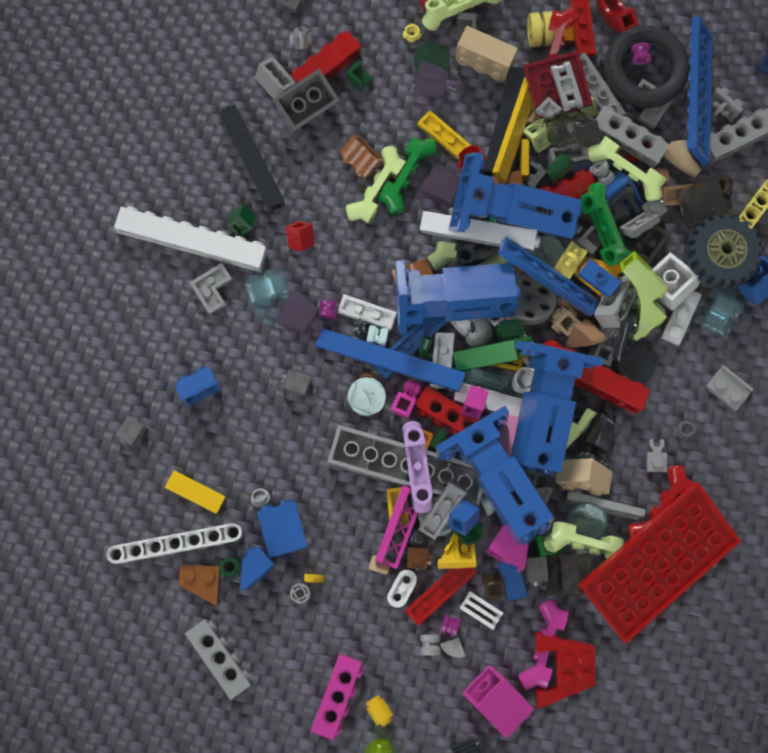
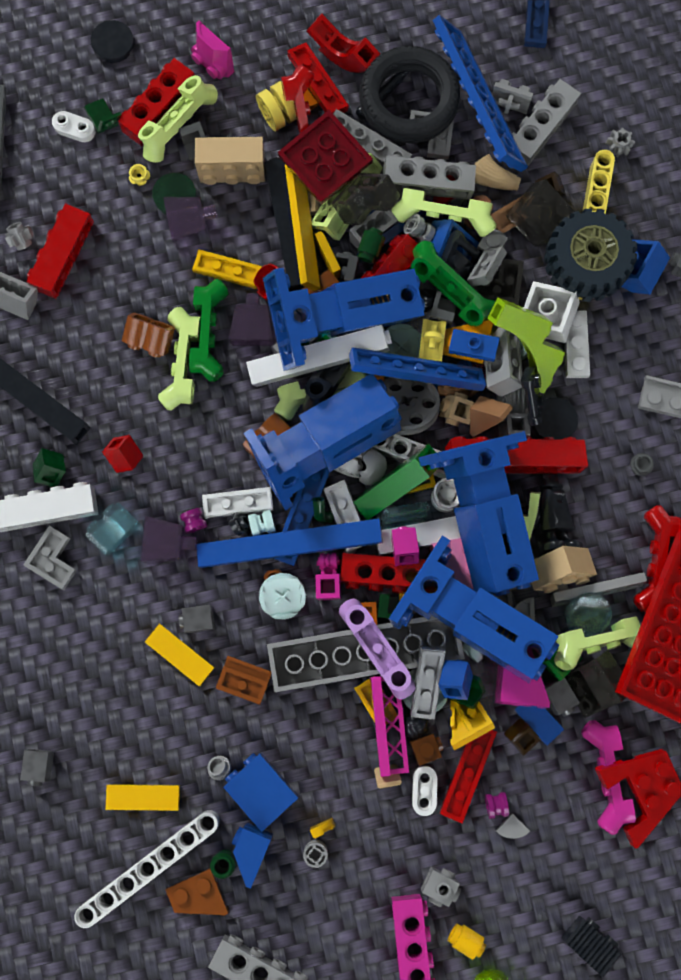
camera: 25 degrees left, 0 degrees up
(197, 386) = (87, 677): blue slope -> none
(271, 403) = (179, 655): none -> yellow tile
(305, 100) = (56, 302): dark grey slope -> none
(309, 443) = (243, 680): none -> dark orange plate
(358, 77) = (103, 249): dark green panel -> none
(379, 654) = (437, 878): none -> light grey brick
(432, 649) = (486, 838): light grey wheel -> none
(467, 601) = (542, 773): white tile -> none
(498, 701) = (590, 863): dark pink slope -> none
(510, 329) = (403, 447): dark green brick -> none
(548, 108) = (328, 186): light grey tile -> none
(566, 86) = (336, 153): light grey plate -> none
(641, 53) = (398, 81): magenta wheel -> none
(656, 460) = (627, 511): light grey plate -> none
(721, 314) = (617, 322): clear light blue brick -> none

